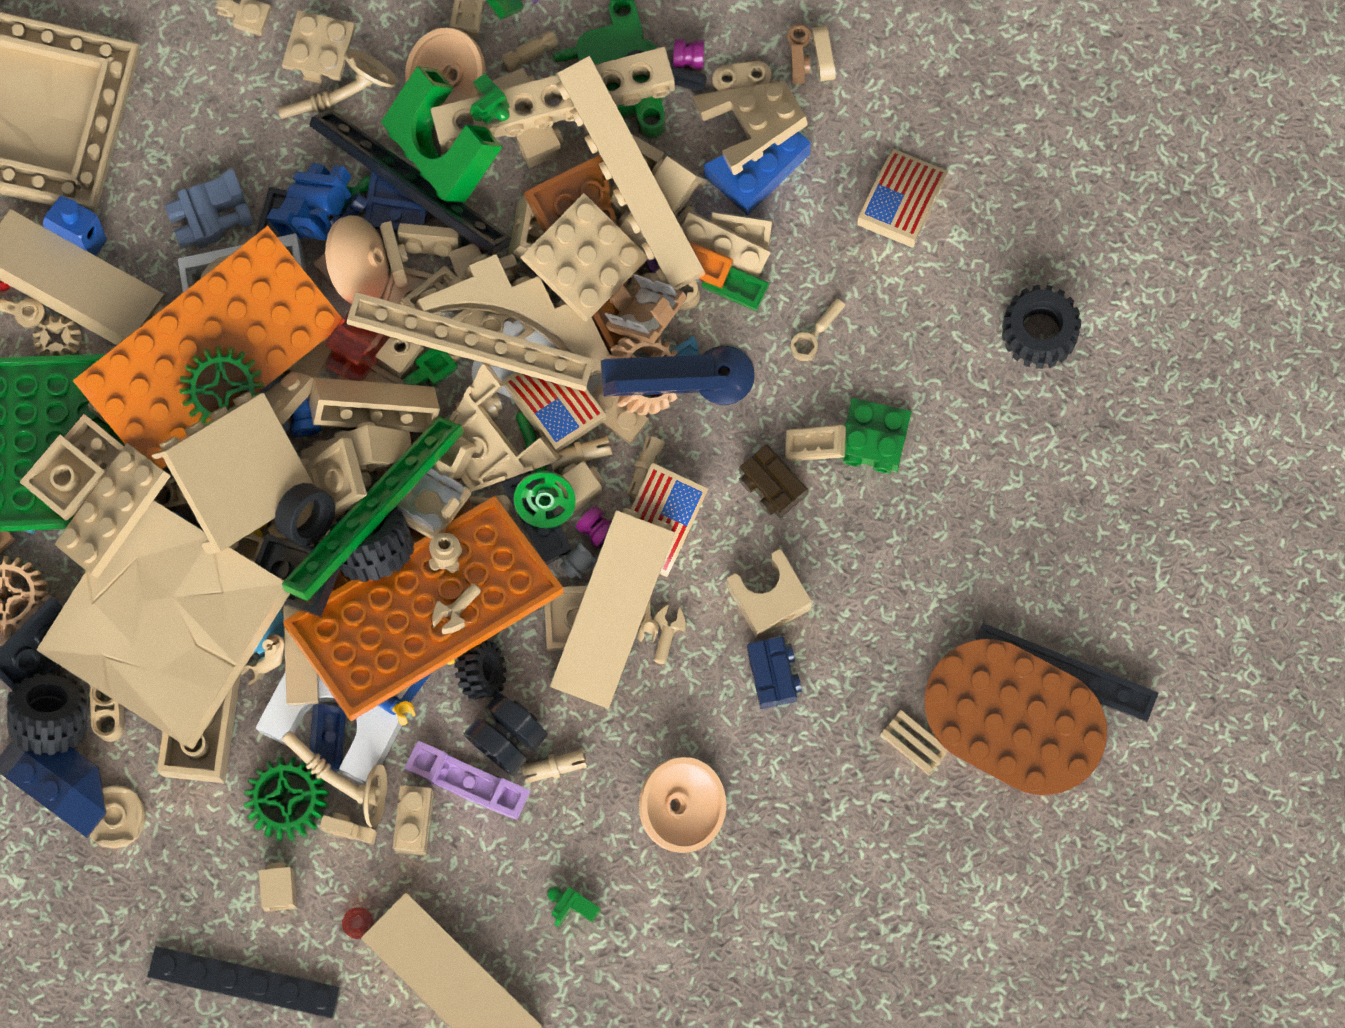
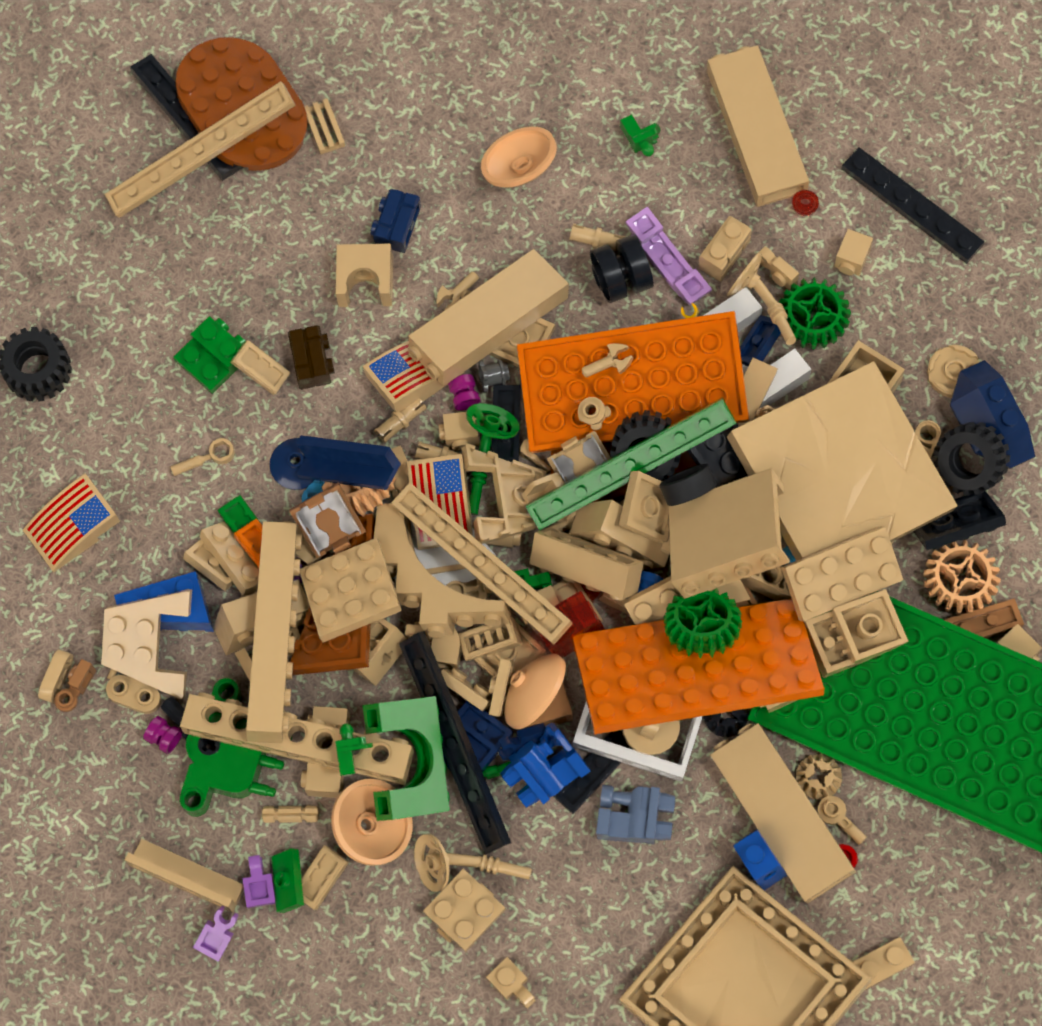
camera: 150 degrees left, 5 degrees down
(481, 671) = (616, 316): black tyre -> none
(1017, 631) = (200, 149): none -> tan tile

